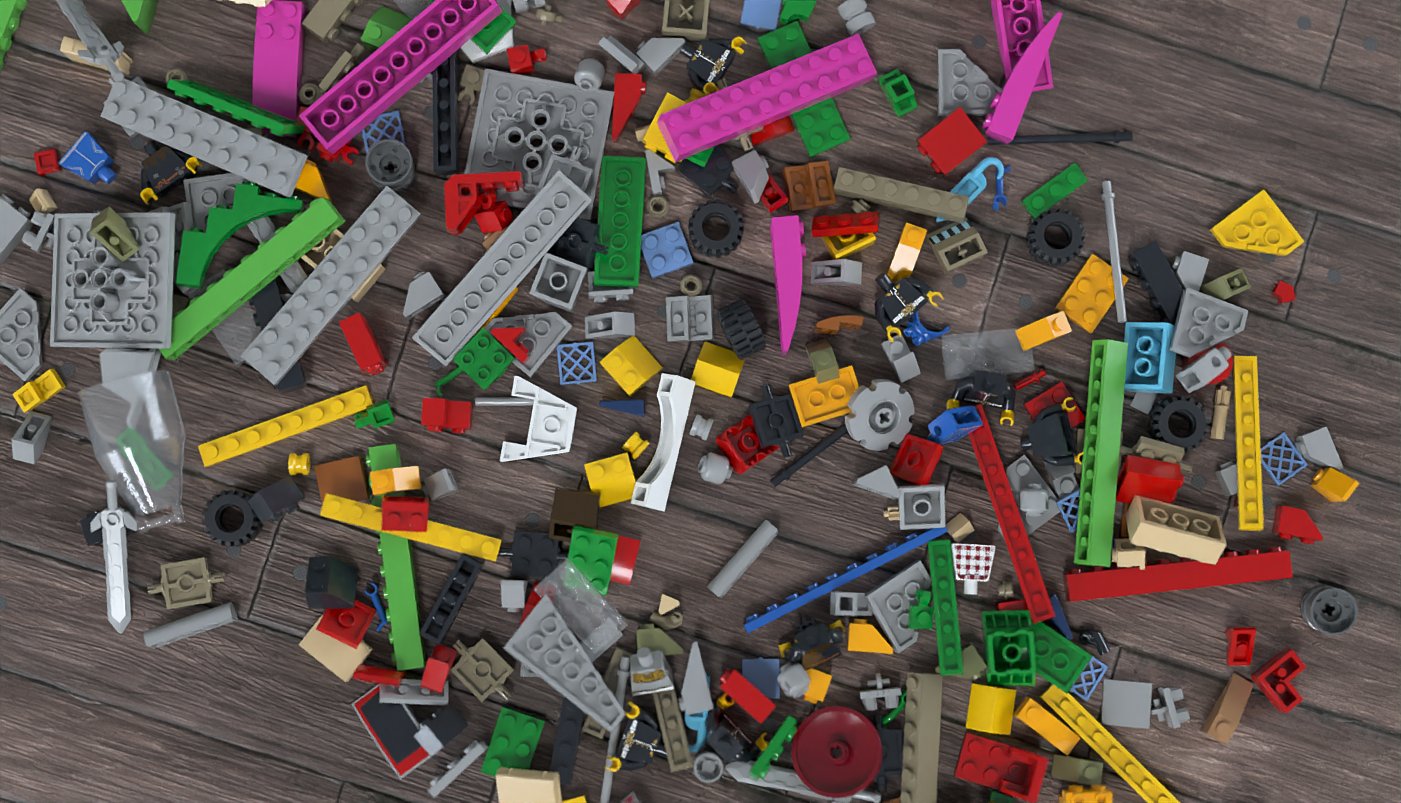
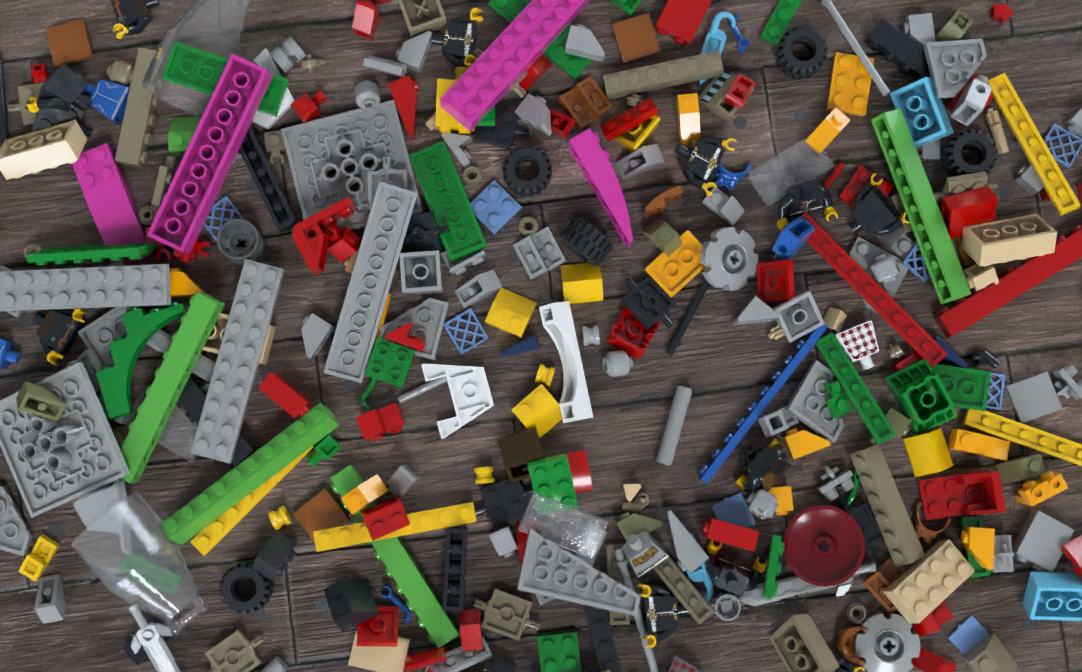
camera: 20 degrees left, 0 degrees up
(290, 406) = (250, 474): none -> bright green brick
(526, 518) = (484, 475): none -> yellow wheel
(834, 124) = (583, 43): none -> light grey slope
(892, 142) = (635, 37): none -> dark orange slope
(945, 786) = (923, 532): none -> dark orange helmet
(970, 248) = (739, 91): none -> red slope

